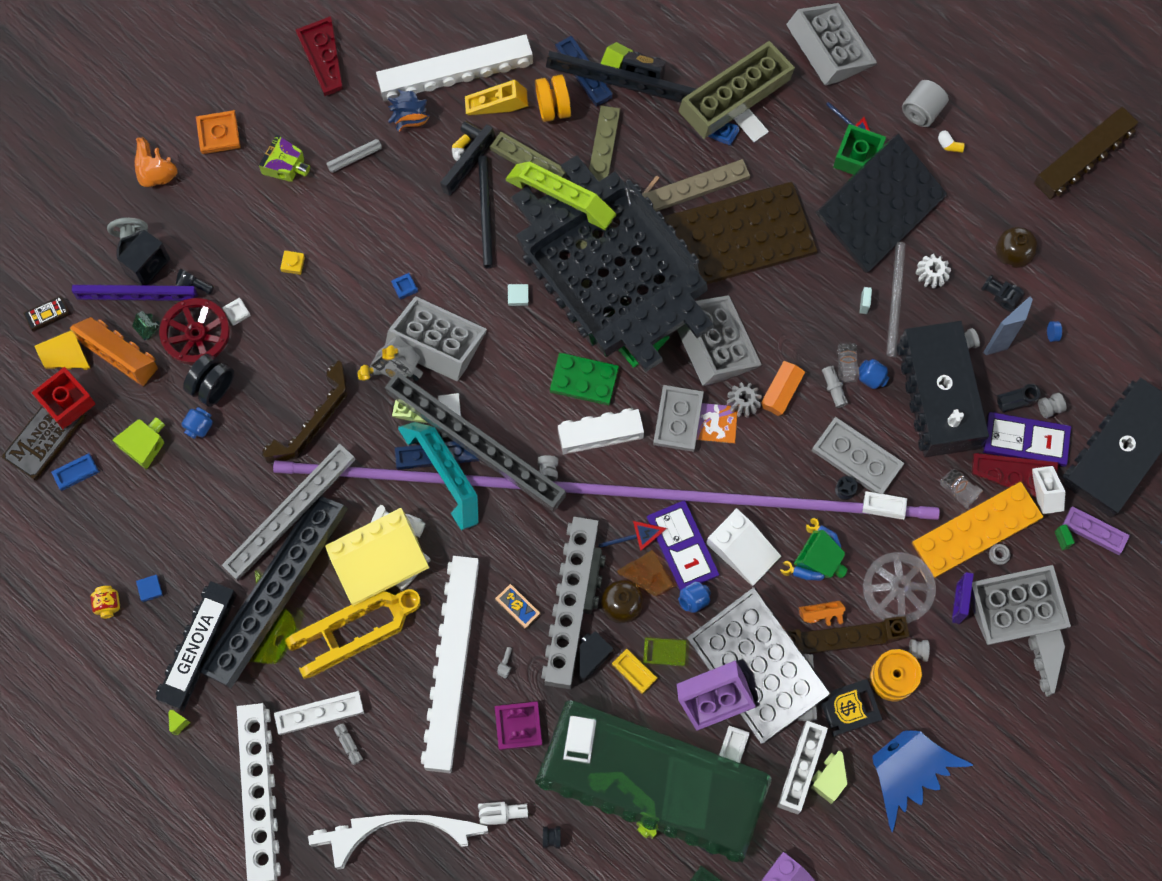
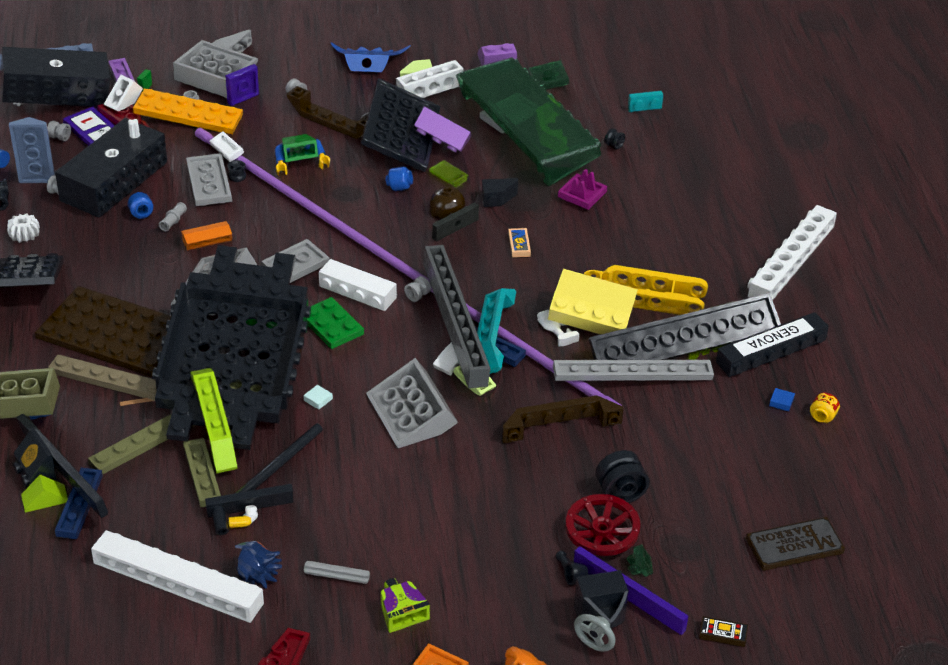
camera: 140 degrees left, 30 degrees down
(62, 352) = (731, 589): yellow slope -> none
(63, 398) = (759, 537): red brick -> none
(75, 472) = (786, 504): blue tile -> none
(115, 350) = (685, 552): orange slope -> none
(141, 441) = (713, 484): lime torso -> none
(176, 722) = (823, 311): lime slope -> none
(197, 423) = (657, 465): blue head -> none
(236, 311) = (552, 527): white tile -> none
(292, 262) = (471, 531): yellow plate -> none
(318, 713) = (713, 267): white plate -> none
(346, 839) = (748, 203): white slope -> none
(348, 744) = (706, 245): light grey axle -> none
(392, 358) = (461, 400): torso -> none
(404, 286) = (397, 458): blue tile -> none
(451, 665) = (593, 239): white brick -> none
(497, 99) = (173, 527): yellow slope -> none
(499, 812) = (636, 163): white arm -> none
(503, 669) = (562, 221): light grey hand -> none
(553, 98) = (132, 485): light orange wheel -> none
(580, 738) = (554, 139): white piece -> none
(588, 530) = (484, 218): light grey brick -> none
(634, 671) = (477, 172): yellow tile -> none
(644, 533) = (395, 223): piece -> none
(648, 574) = (414, 207): clear orange slope -> none
(683, 546) = (375, 208): tile -> none
(717, 423) = (268, 248): sticker -> none
(734, 744) = (462, 115): white tile -> none
(743, 547) = (339, 187): white slope -> none
(749, 395) = (241, 239): light grey gear -> none
(822, 611) = (329, 131): orange plate -> none
(847, 362) = (147, 222): clear leg -> none
(847, 710) = (364, 91): black container -> none
(865, 300) = (88, 241): light aqua tile -> none
(896, 299) = (68, 233): clear piece -> none
(897, 592) = (268, 113): clear wheel -> none
(903, 665) = (326, 83): light orange wheel -> none
(960, 488) = (169, 127): clear leg -> none
(1017, 399) = (68, 144): black piece -> none

